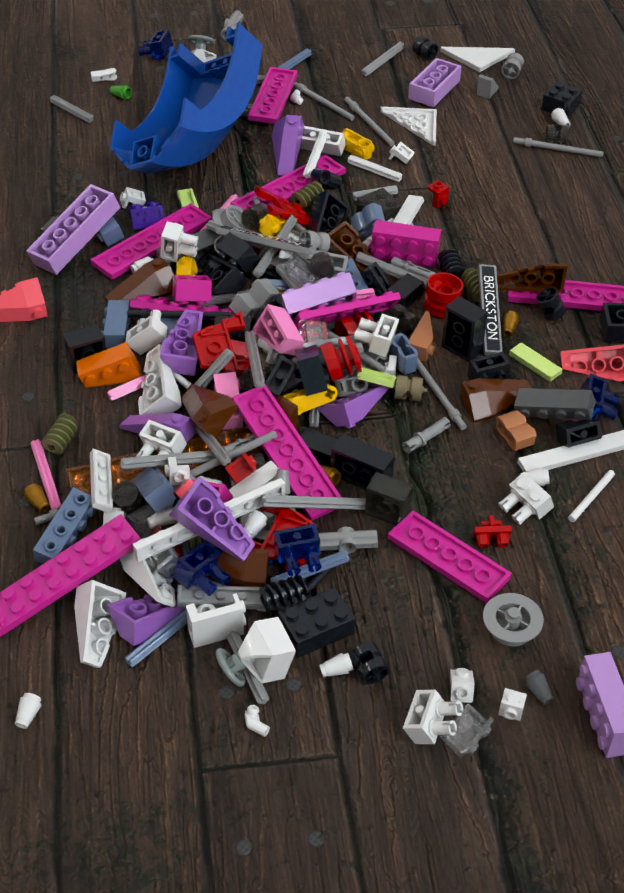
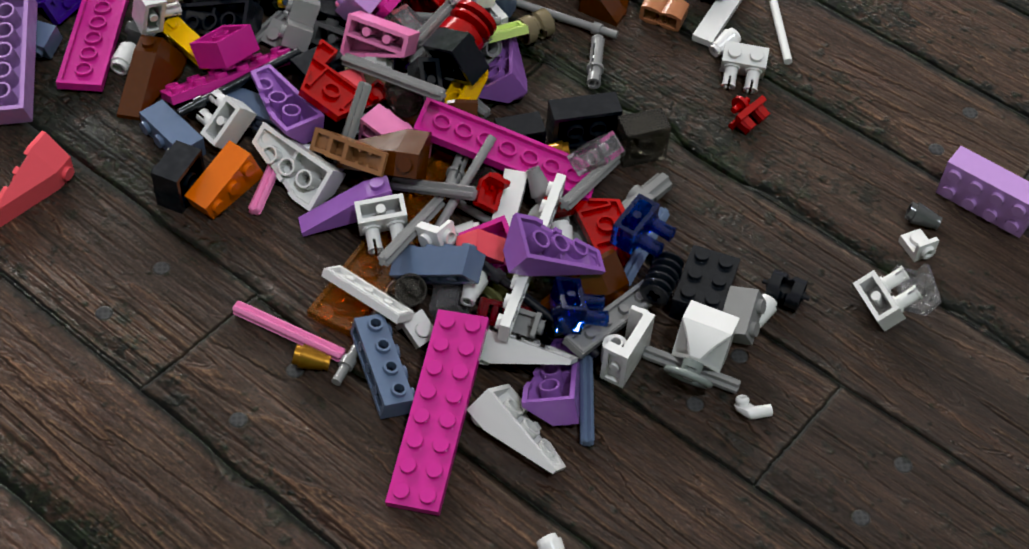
camera: 45 degrees left, 5 degrees up
(60, 434) = (257, 279): olive piece -> none
(185, 390) = (349, 151): none -> medium nougat slope
(314, 655) = (748, 306): none -> light grey brick
(334, 486) = (595, 153): none -> clear brick
(450, 556) = (737, 156): dark pink plate -> none
(462, 685) = (869, 254): white bracket -> none
(513, 619) = (848, 174): light grey wheel -> none

